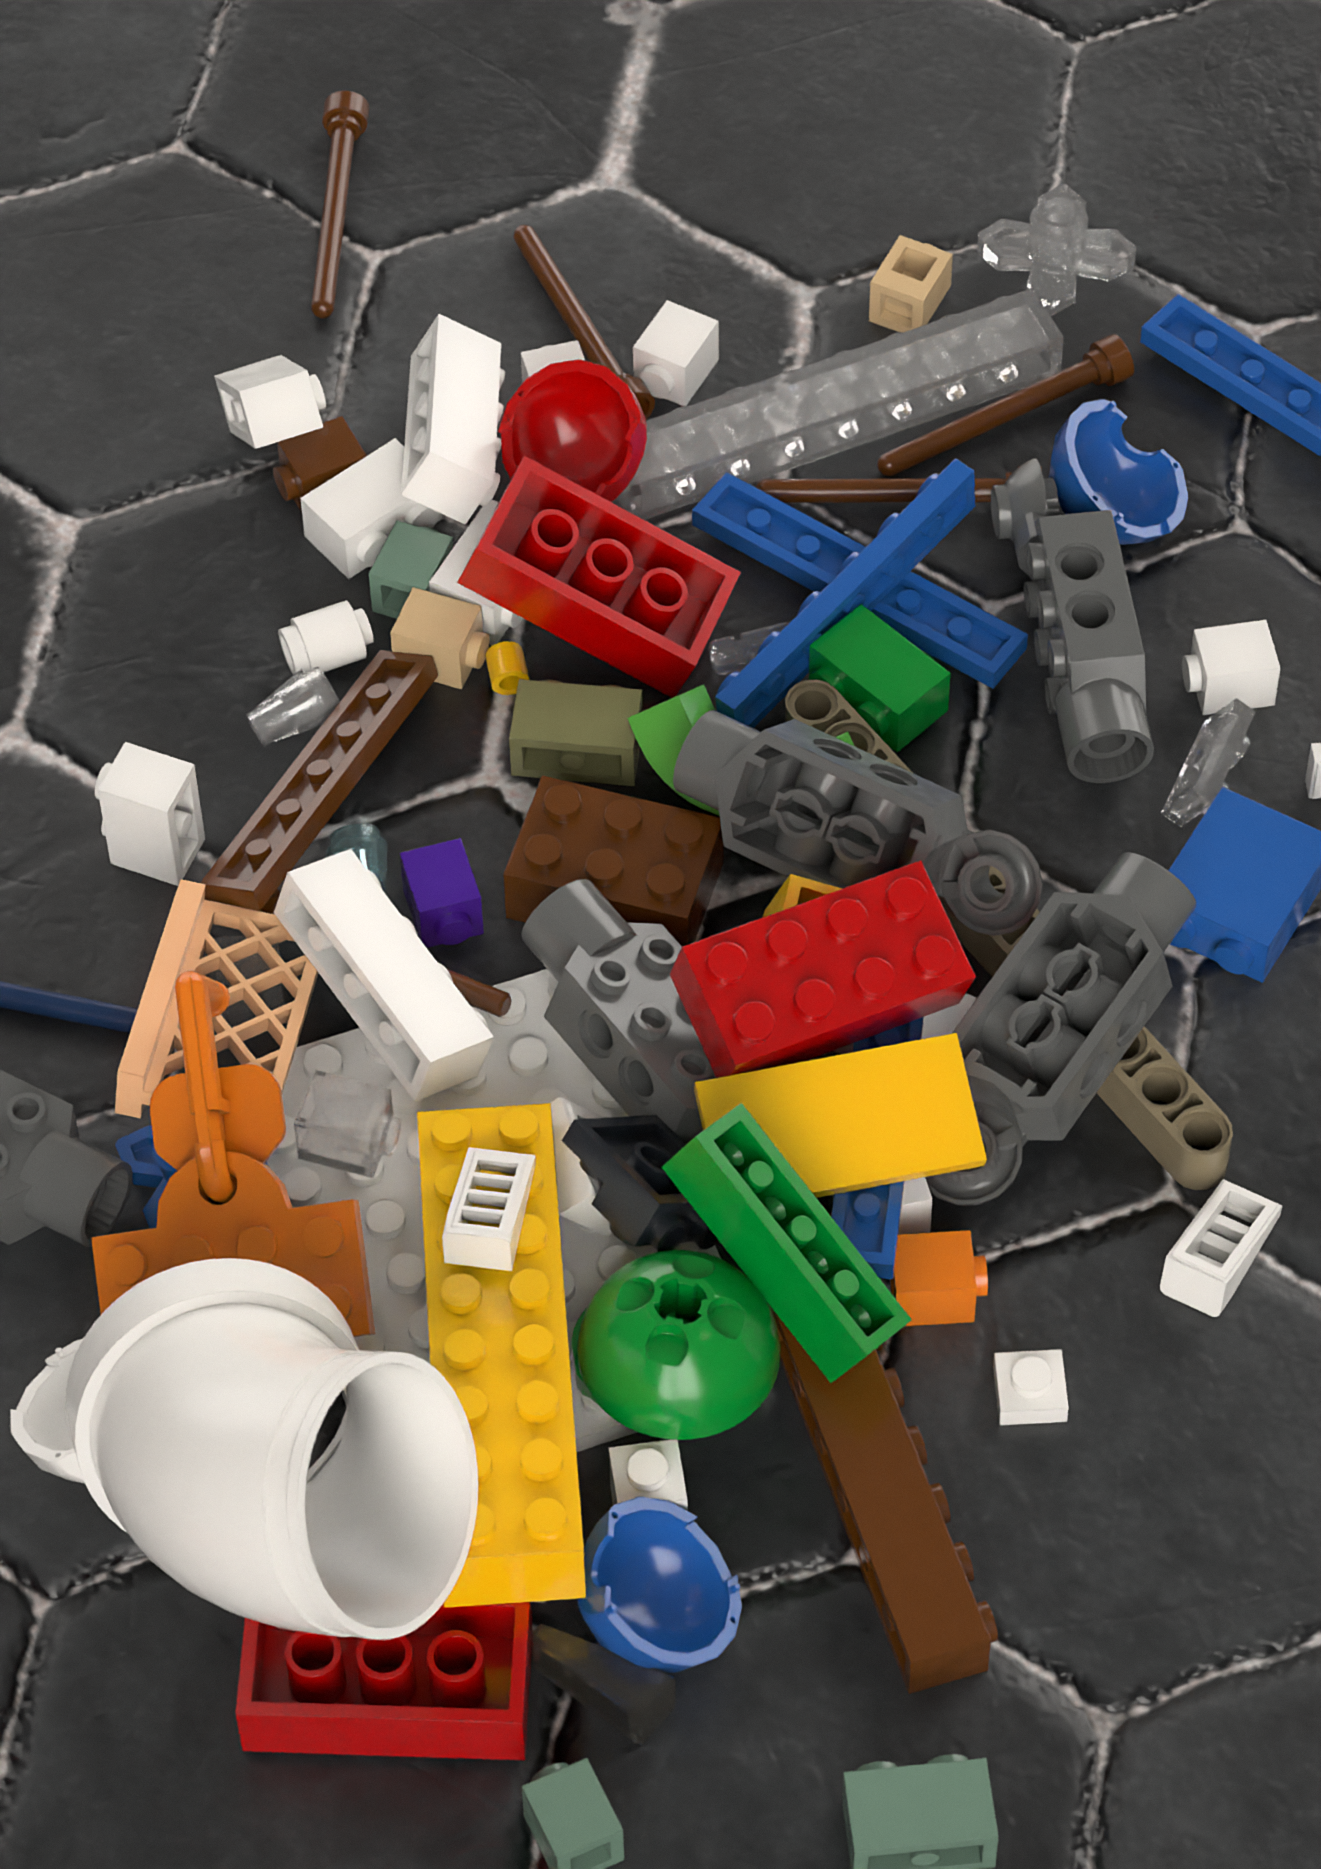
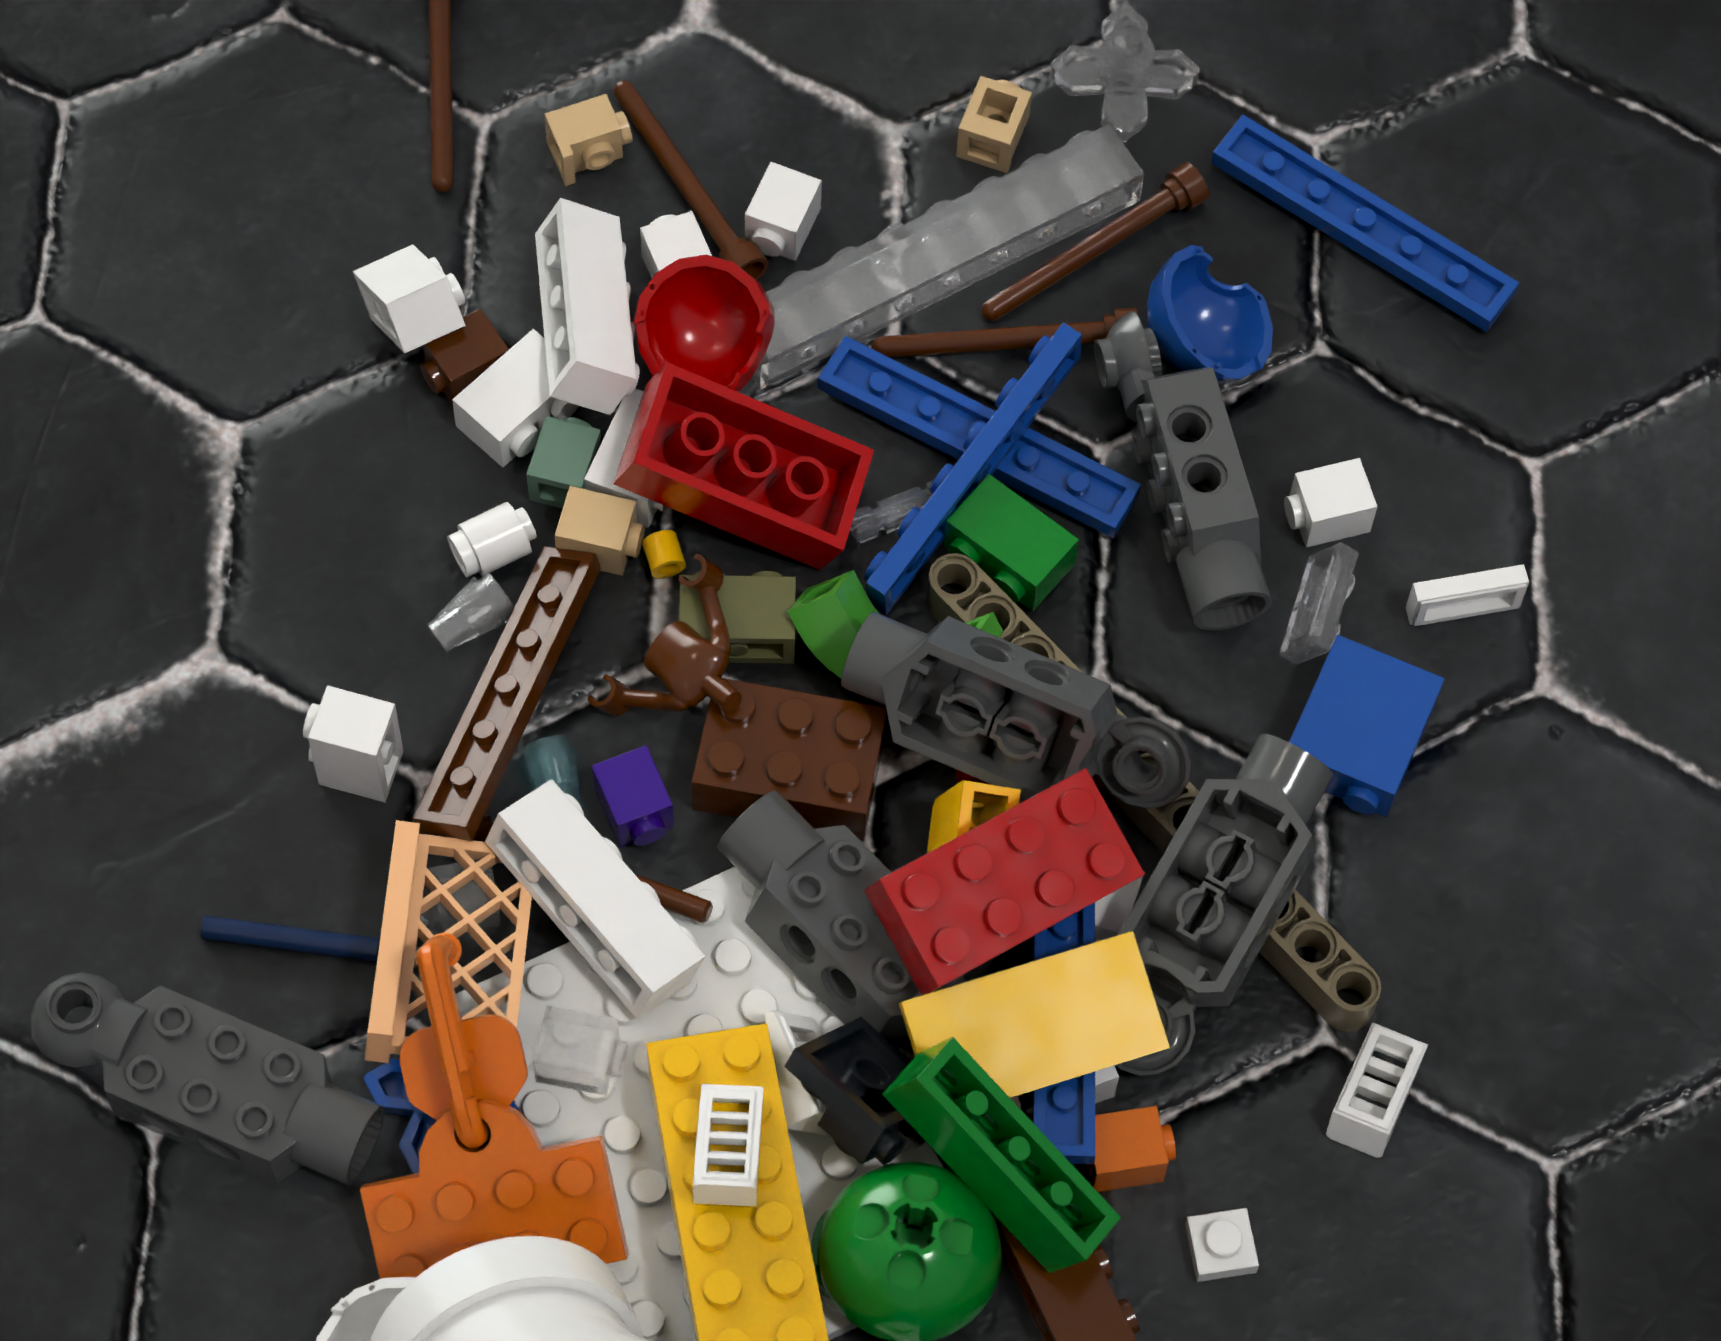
camera: 10 degrees left, 10 degrees up
(477, 270) = (586, 136): none -> tan brick
(508, 756) = (683, 659): none -> reddish brown piece

